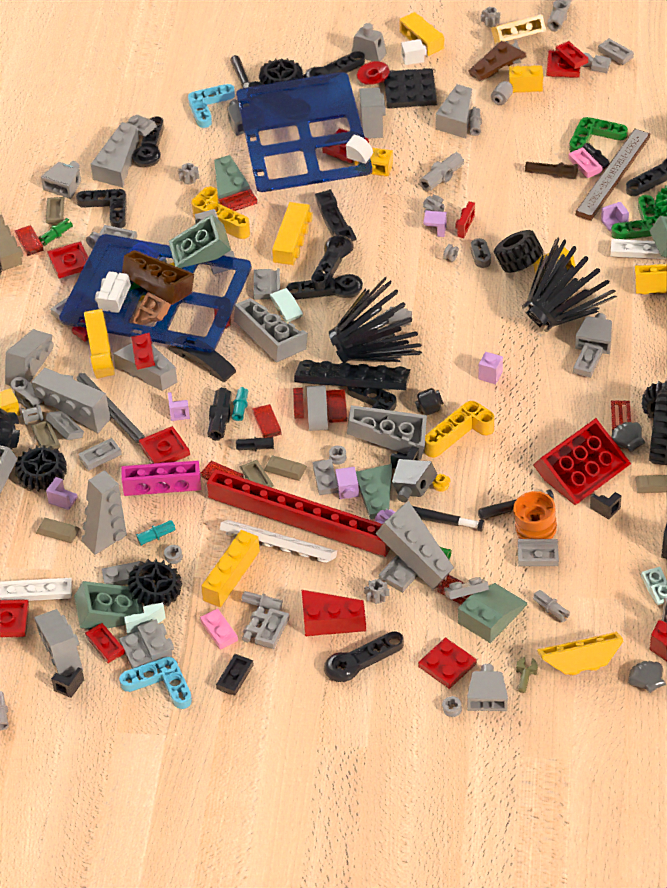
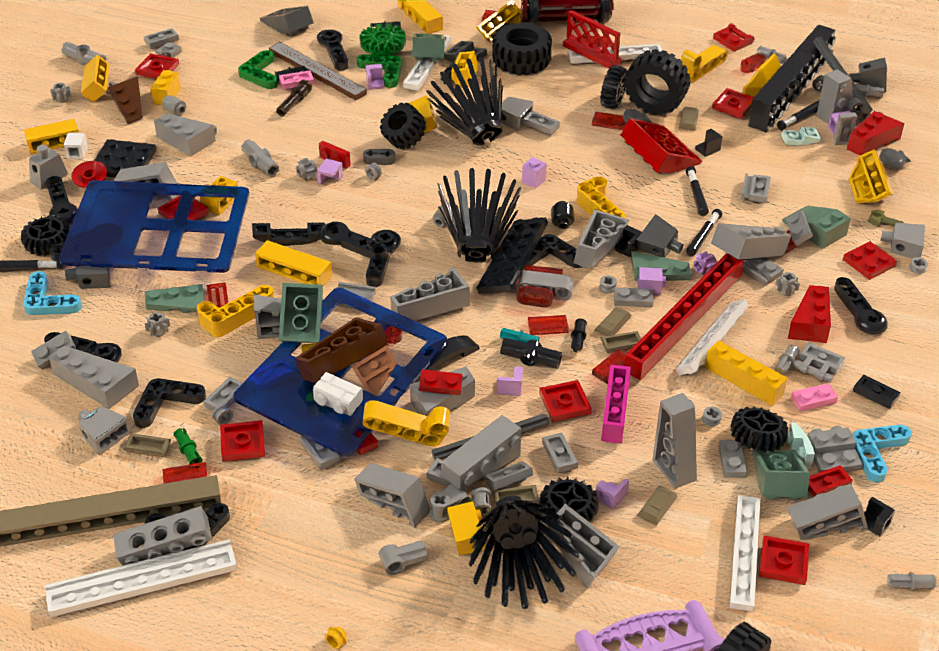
camera: 80 degrees left, 5 degrees down
(286, 305) = (391, 283): light aqua slope -> none
(358, 149) = (219, 187): white brick -> none
(535, 516) = (725, 175): orange wheel -> none
(551, 605) = (815, 191): light grey axle -> none
(571, 54) = (157, 54): red plate -> none

